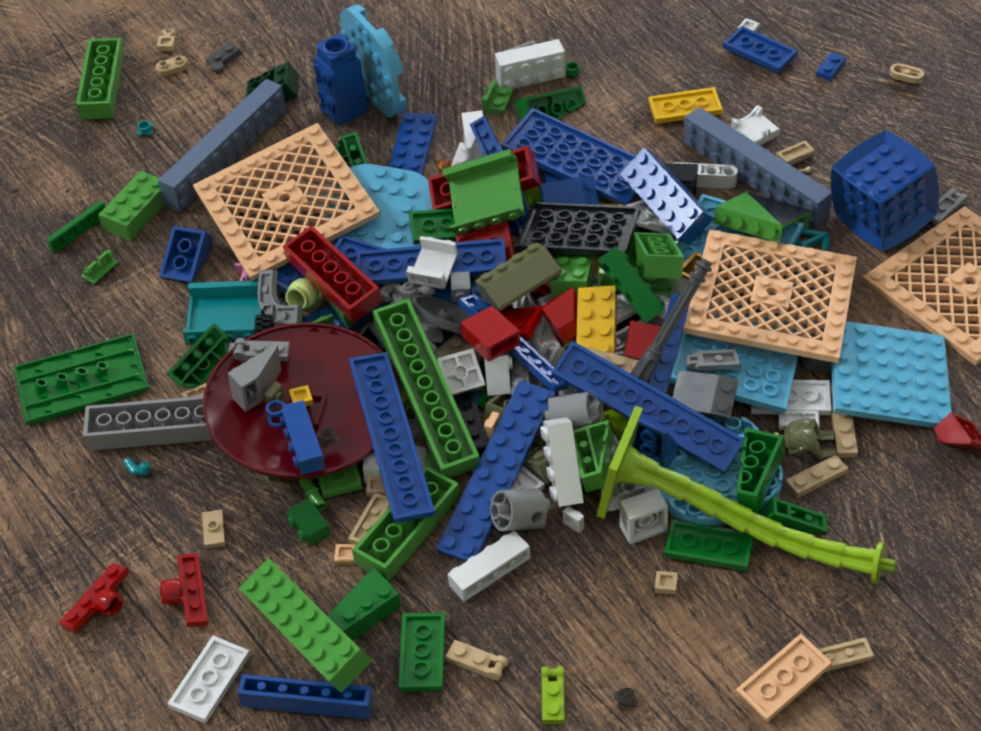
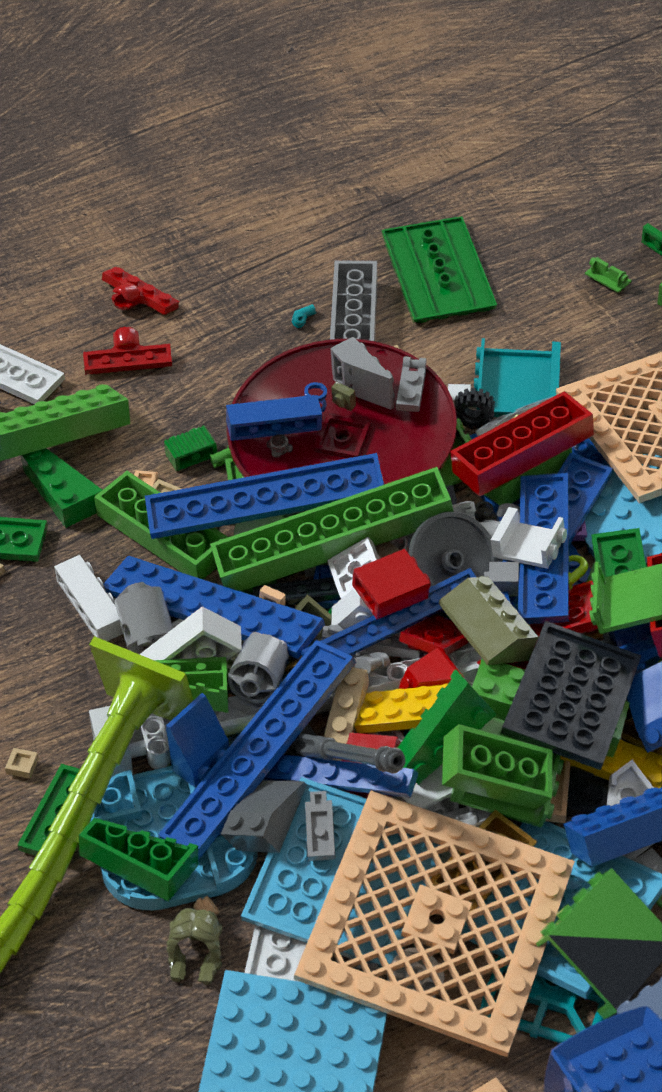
camera: 95 degrees right, 0 degrees up
(185, 254) = (619, 343): blue slope -> none
(200, 360) = (443, 355): green wedge -> none
(213, 529) = (205, 377): tan plate -> none
(301, 393) = (340, 421): yellow plate -> none
(789, 416) = (236, 945): white plate -> none
(794, 516) = (76, 908): green slope -> none
(816, 476) = (144, 952): tan plate -> none
(844, 435) = (194, 996): tan plate -> none

